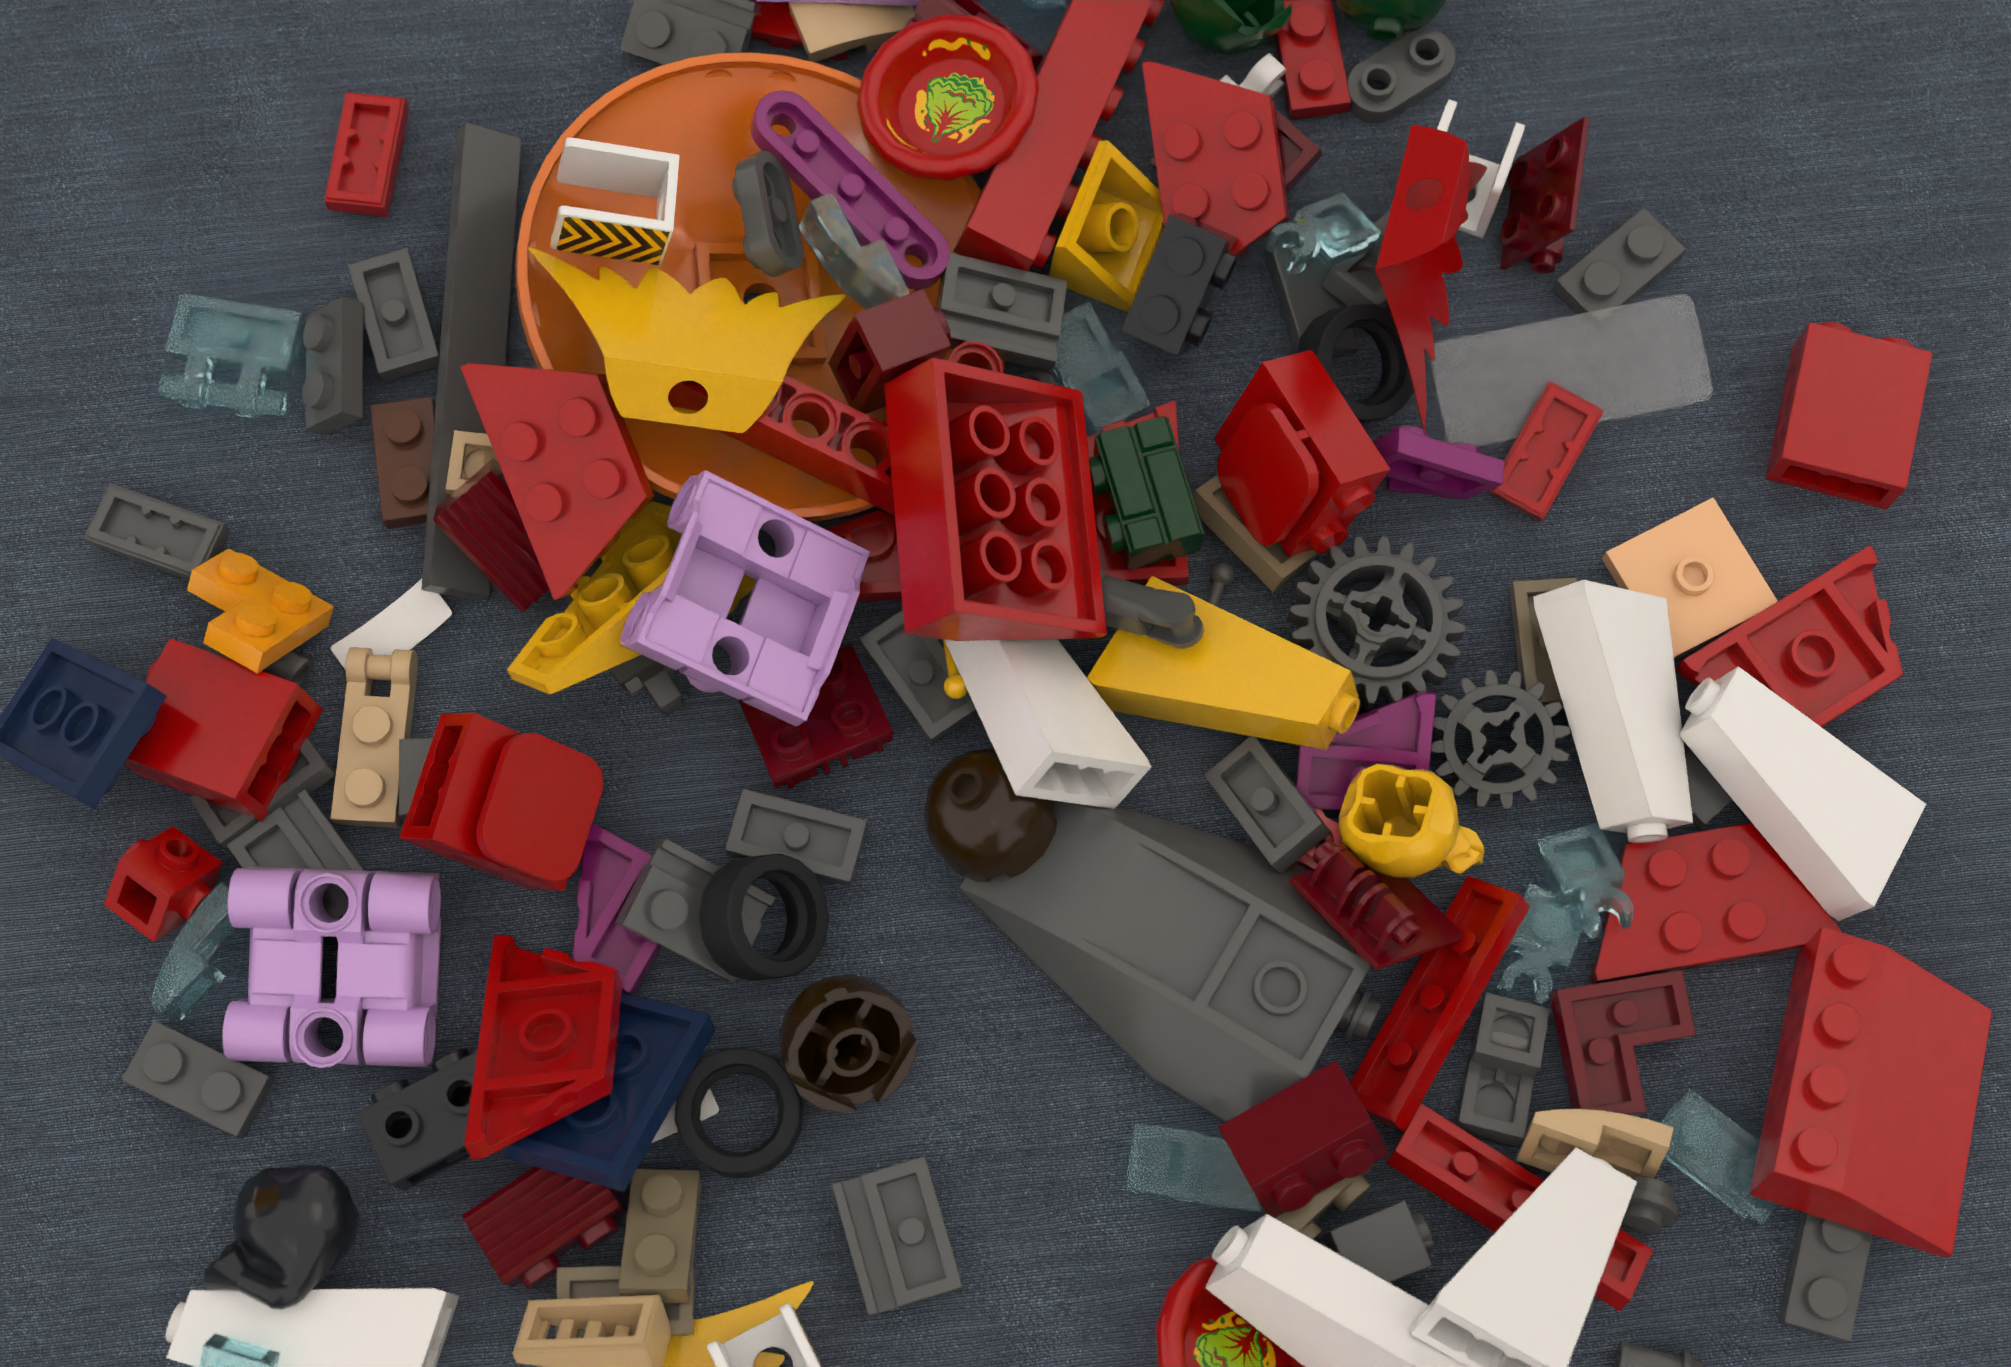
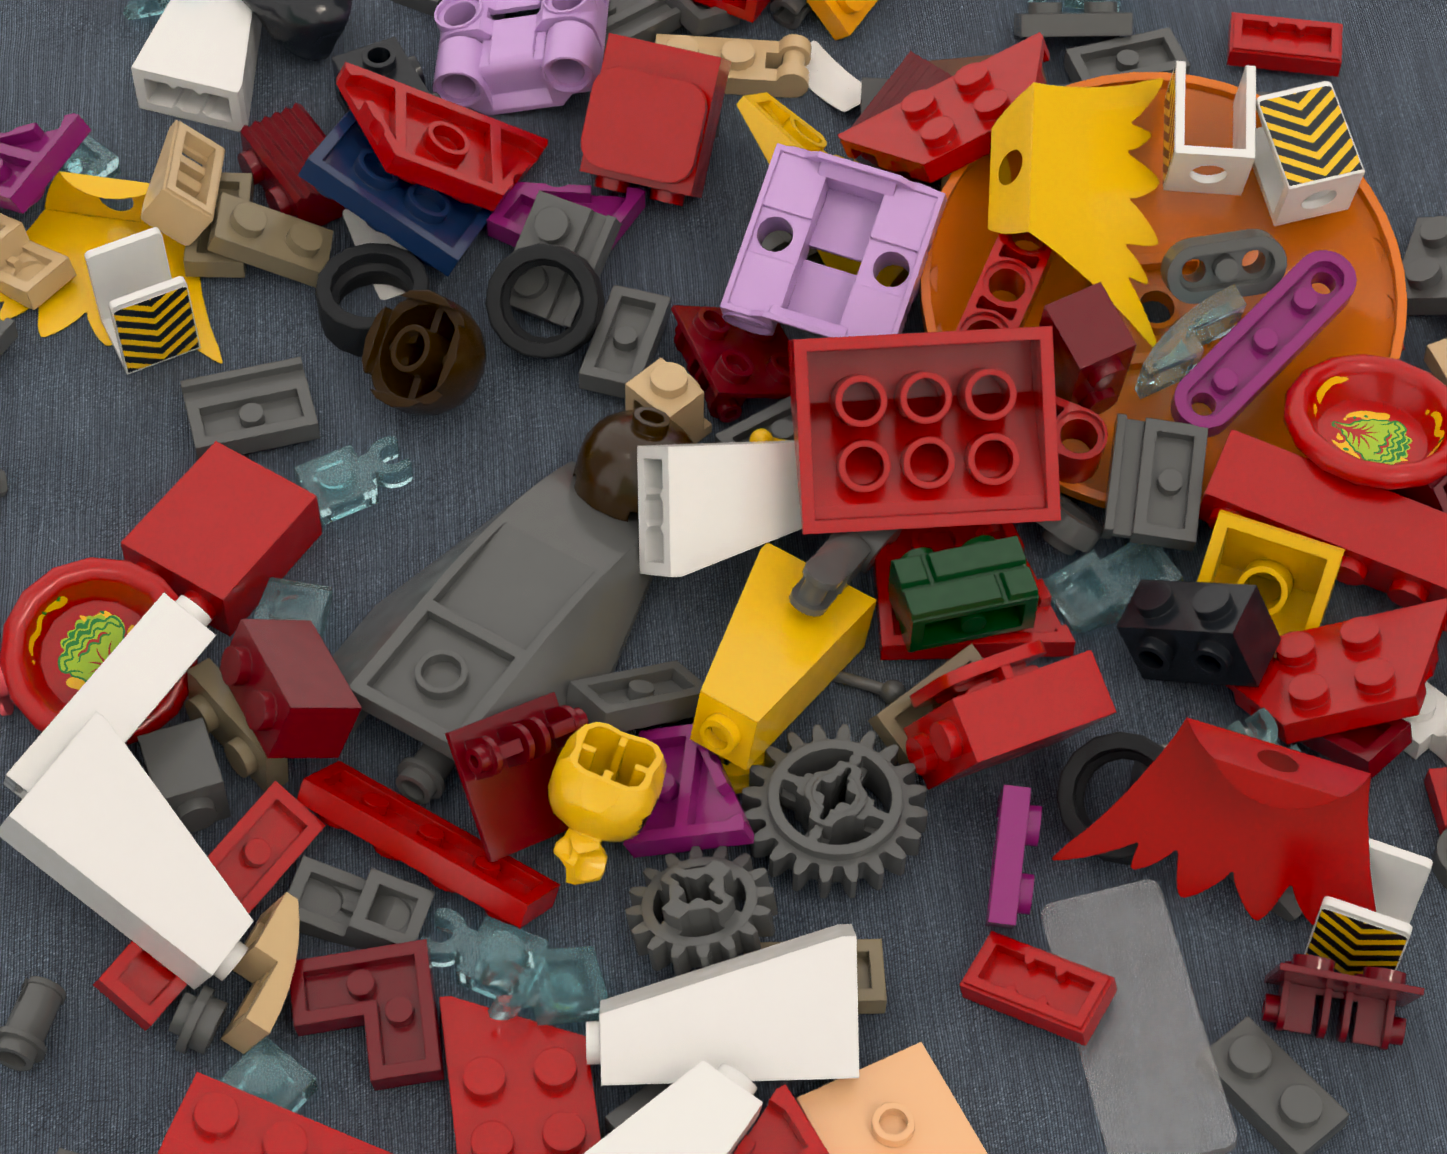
camera: 90 degrees right, 20 degrees down
(651, 107) = (1305, 154): none -> piece
(896, 788) = (672, 391): none -> tan brick
(983, 1128) = (351, 482): none -> clear light blue plate
(1081, 1246) = (225, 534): none -> red brick

